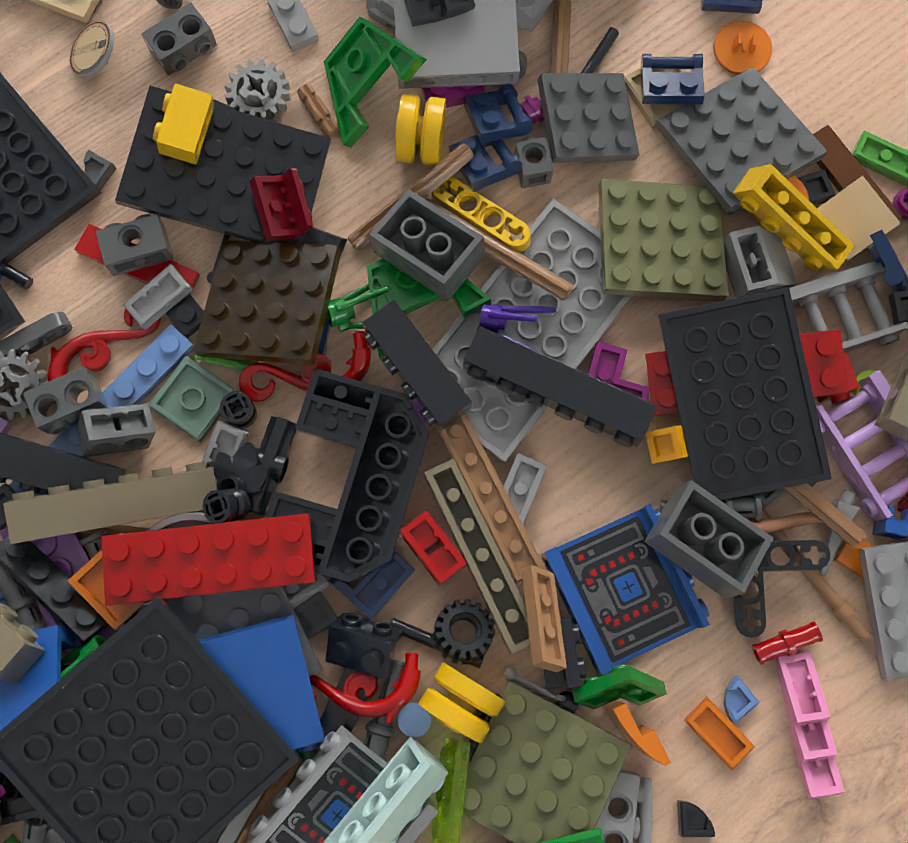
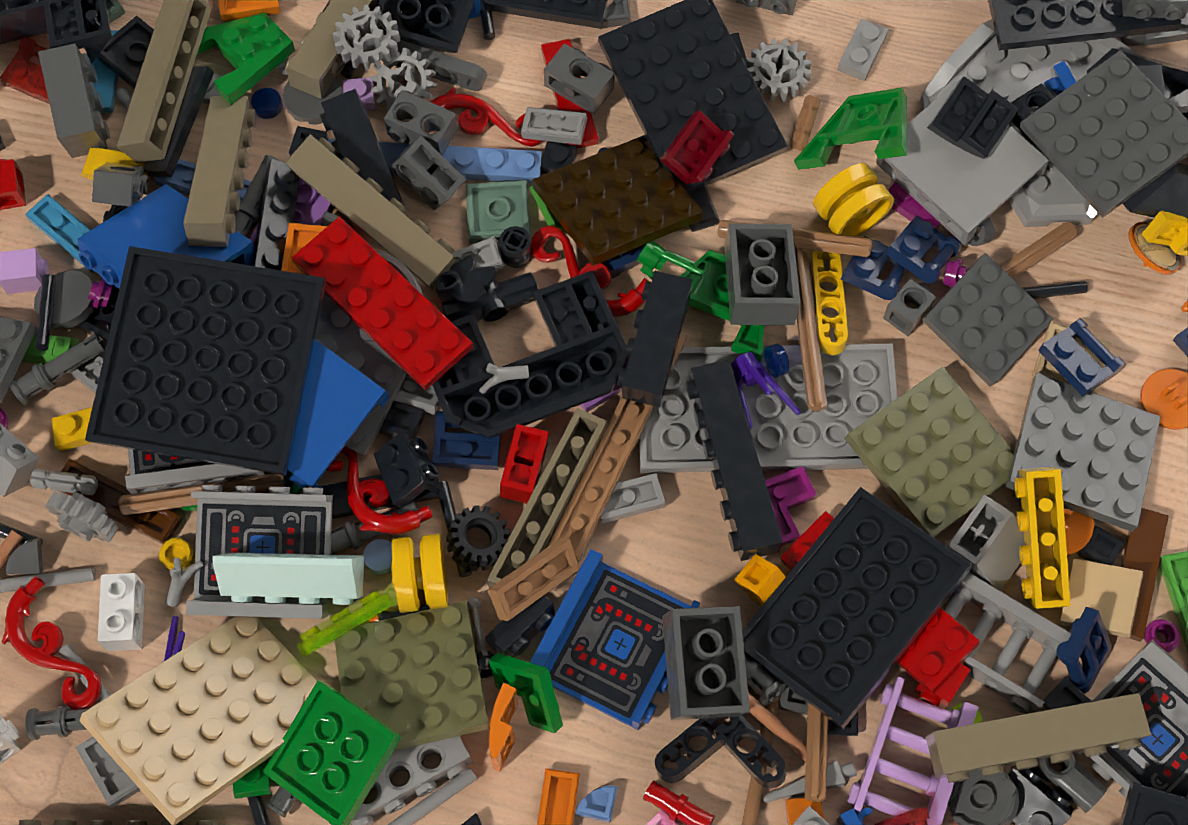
camera: 55 degrees right, 10 degrees down
(184, 123) = (696, 33): yellow brick -> none
(226, 505) = (432, 284): black wheel -> none
(347, 509) = (504, 373): none -> light grey bar
(503, 291) = (776, 360): none -> clear blue tile

